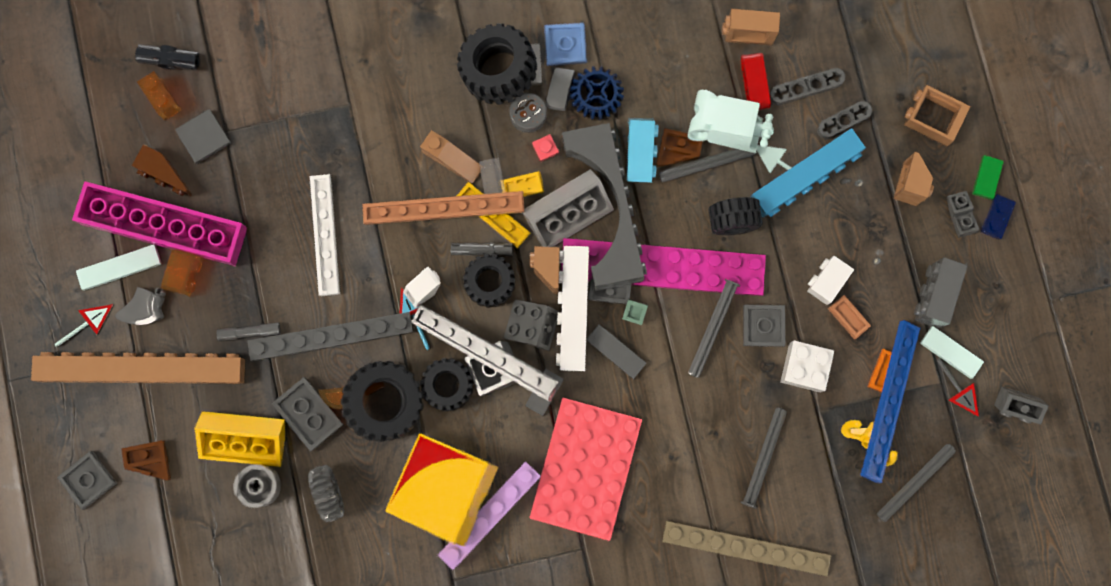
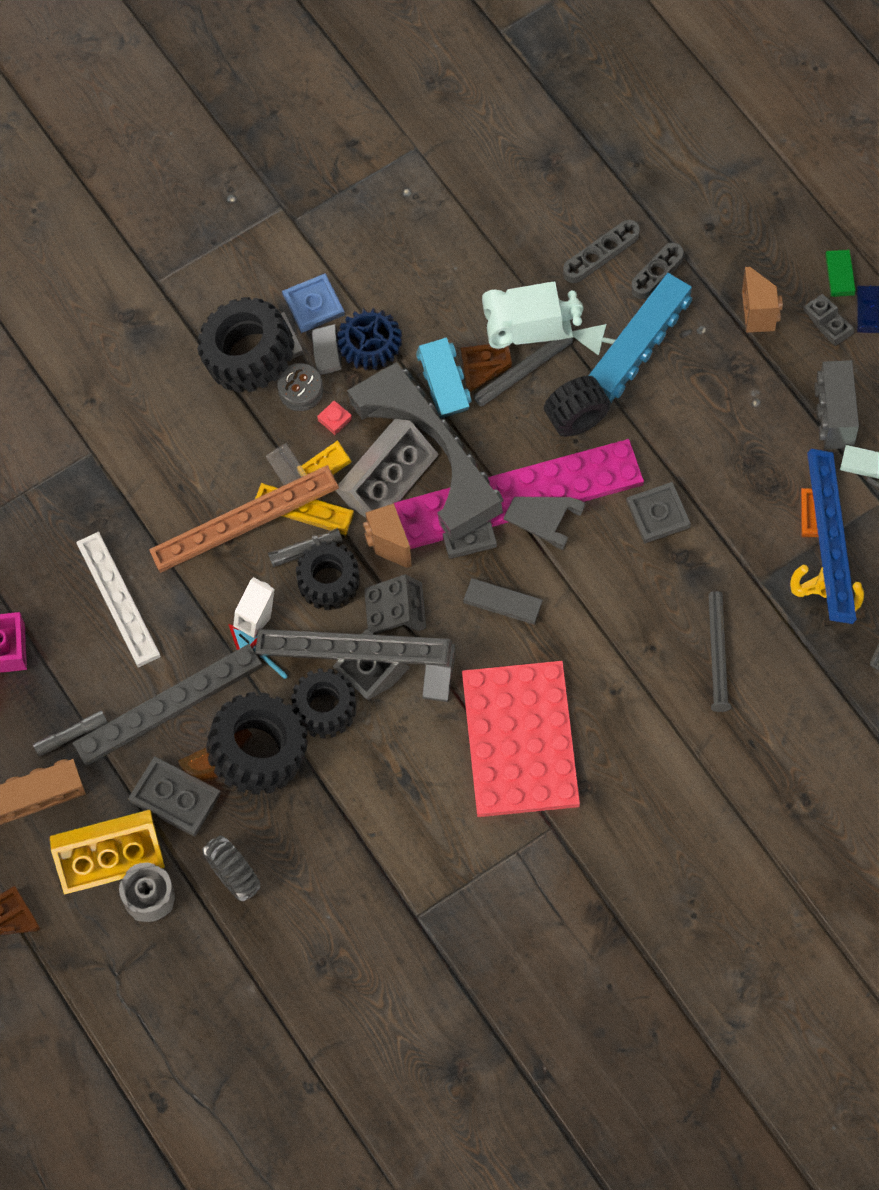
camera: 15 degrees left, 15 degrees down
(441, 490) = (363, 811): yellow tile -> none
(450, 157) = (230, 463): medium nougat slope -> none
(492, 513) = (421, 842): lavender arch -> none
(574, 308) = (436, 569): white brick -> none
(635, 311) = (506, 548): sand green tile -> none
(673, 294) = (542, 516): none -> dark grey flag
(713, 328) = (602, 533): dark grey axle -> none
(746, 548) = (738, 755): dark tan plate -> none
(751, 27) = (513, 209): medium nougat window -> none
(755, 80) = (541, 262): red beam -> none
(807, 366) = (724, 536): white brick -> none
(830, 279) = (711, 438): white brick -> none
(849, 317) = (750, 470): nougat tile -> none
(960, 109) = (755, 211): medium nougat window -> none

